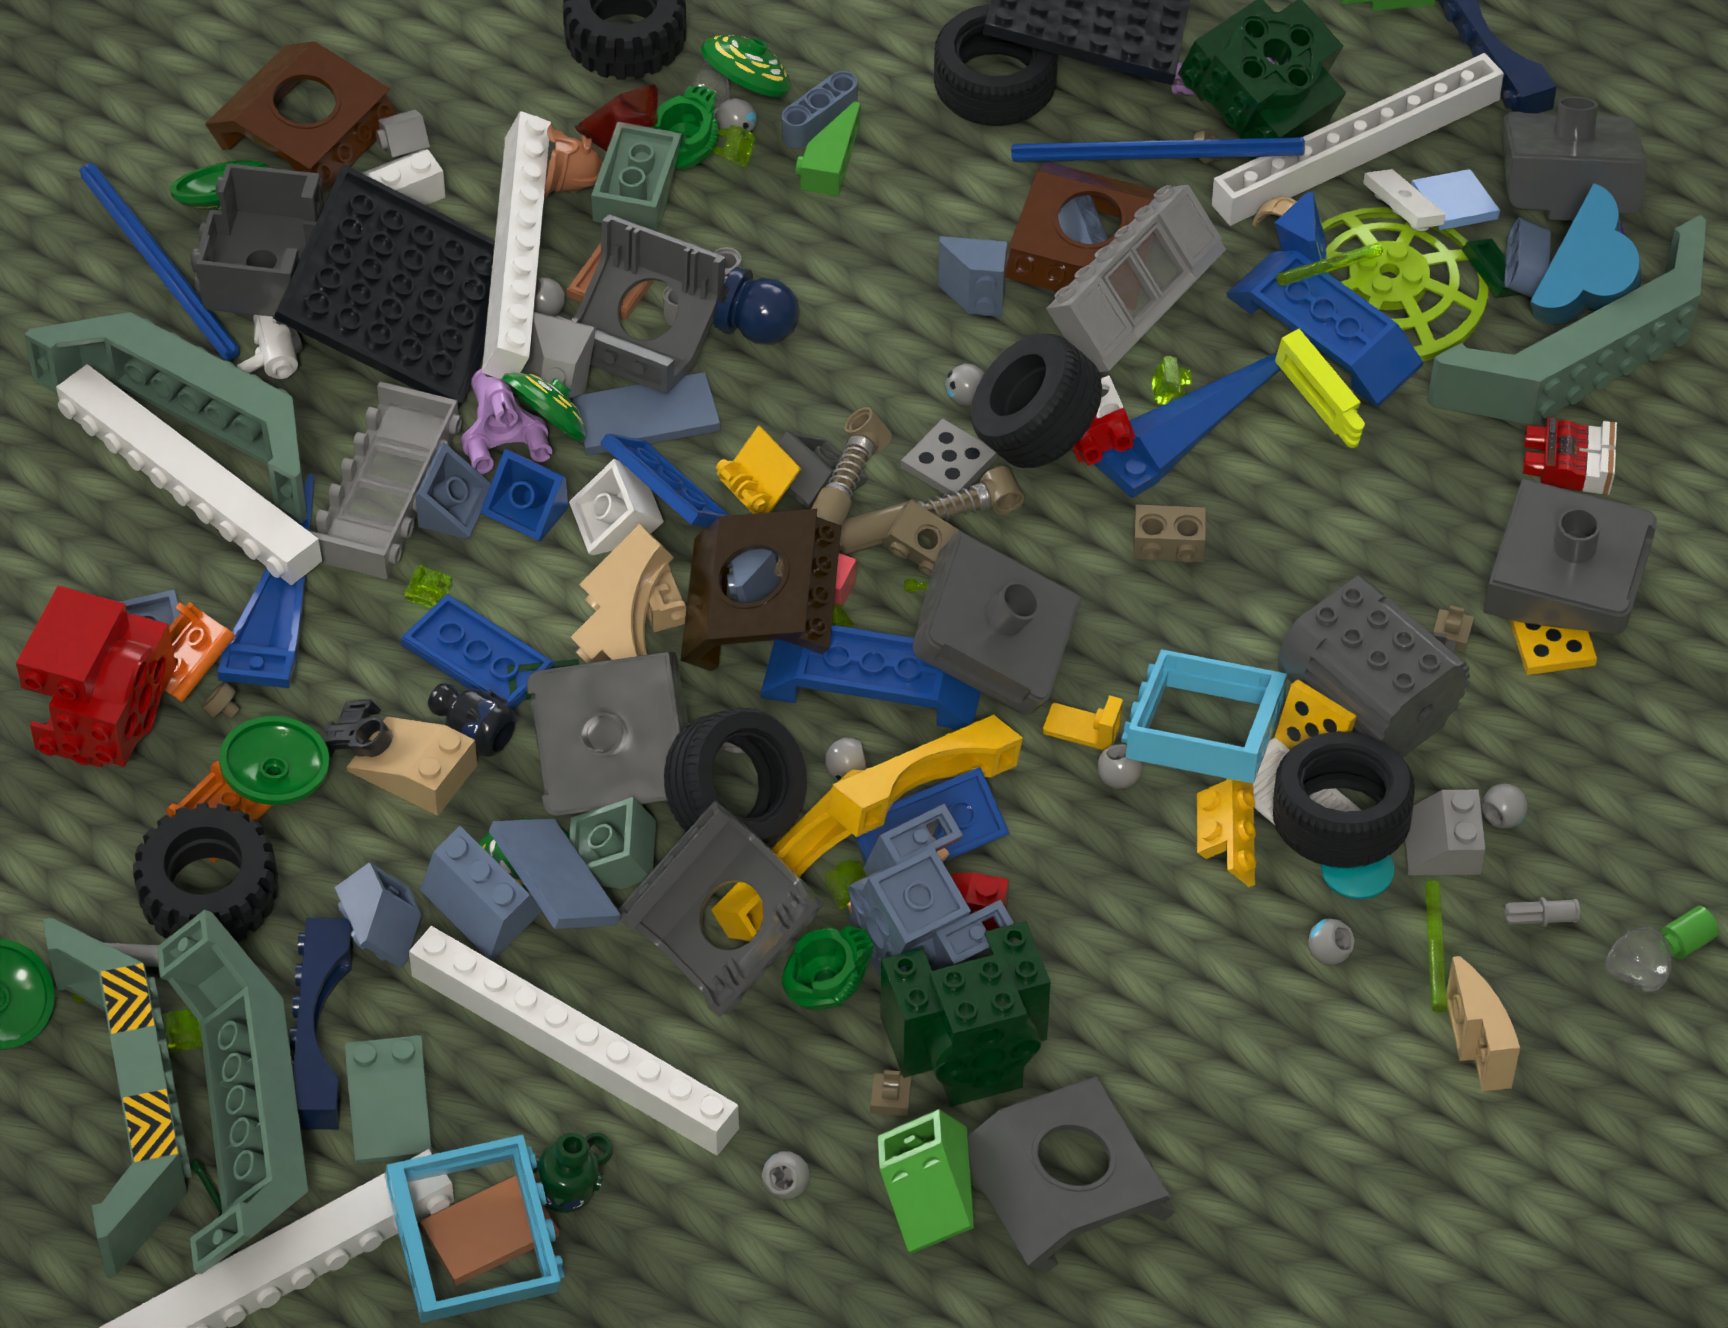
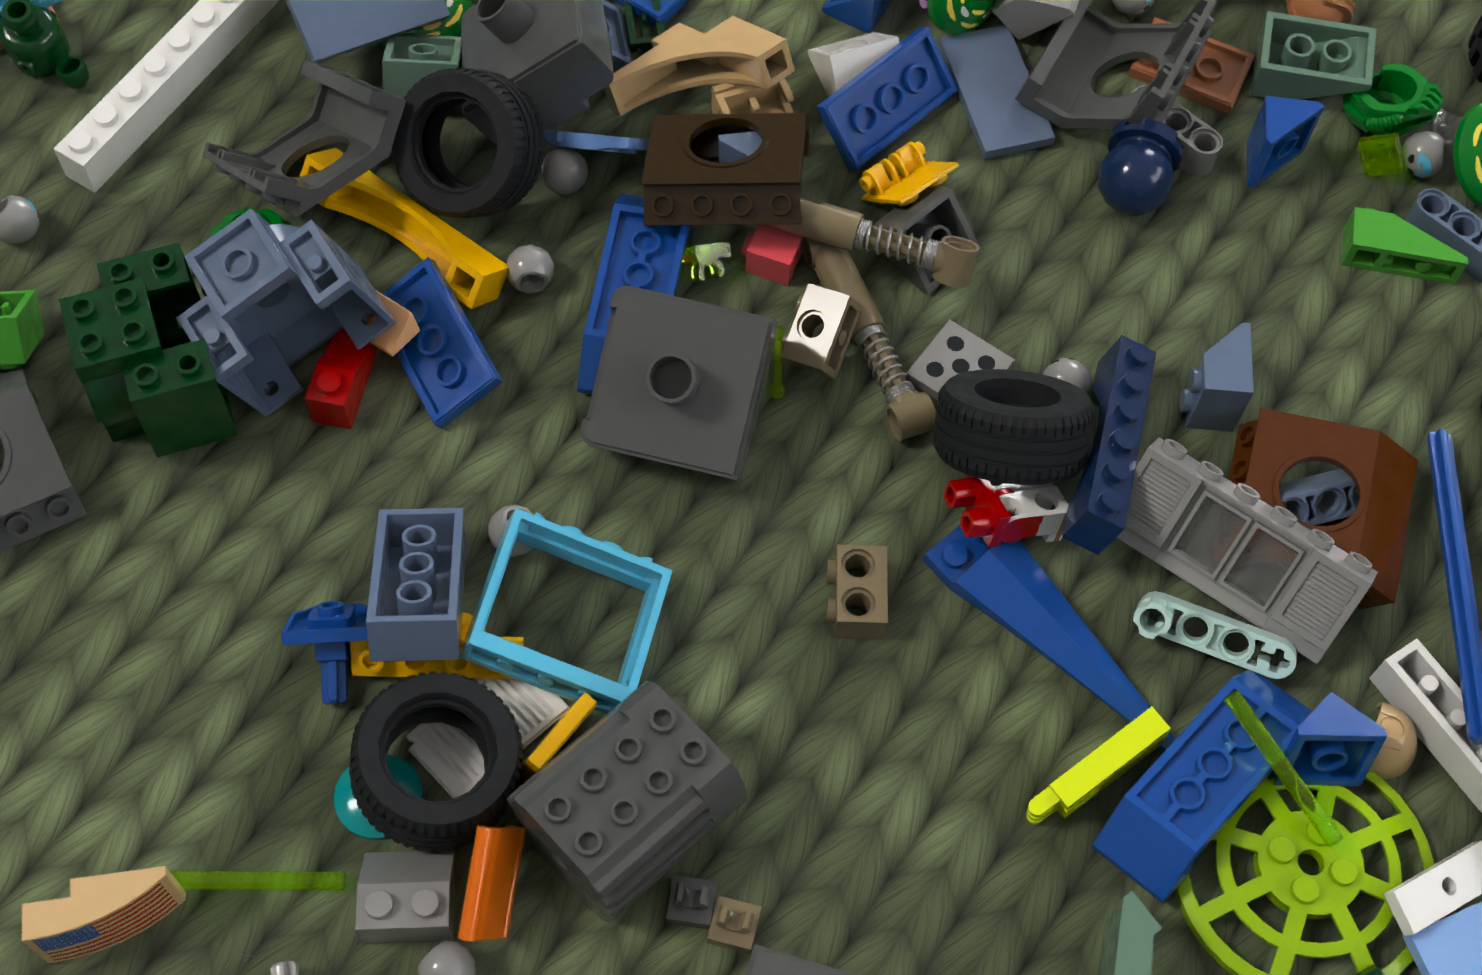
camera: 85 degrees right, 10 degrees up
(630, 107) = (1395, 37): clear red slope -> none
(717, 687) = (595, 141): none -> medium blue tile
(728, 212) = (1279, 135): none -> blue slope
(841, 879) = (380, 272): clear neon green tile -> none
(866, 797) = (433, 258): yellow arch -> none
(1085, 727) = (579, 495): yellow bracket -> none
(1114, 349) = (1104, 491): none -> dark blue arch
(1169, 380) = (1097, 598): clear neon green tile -> none
(1184, 339) = (1213, 641): none -> light aqua beam
(1187, 811) = (417, 585): none -> sand blue brick
(1222, 886) = (330, 629): none -> blue piece
(1331, 941) = (254, 751): light grey piece -> none
(1443, 760) = (491, 883): none -> orange piece

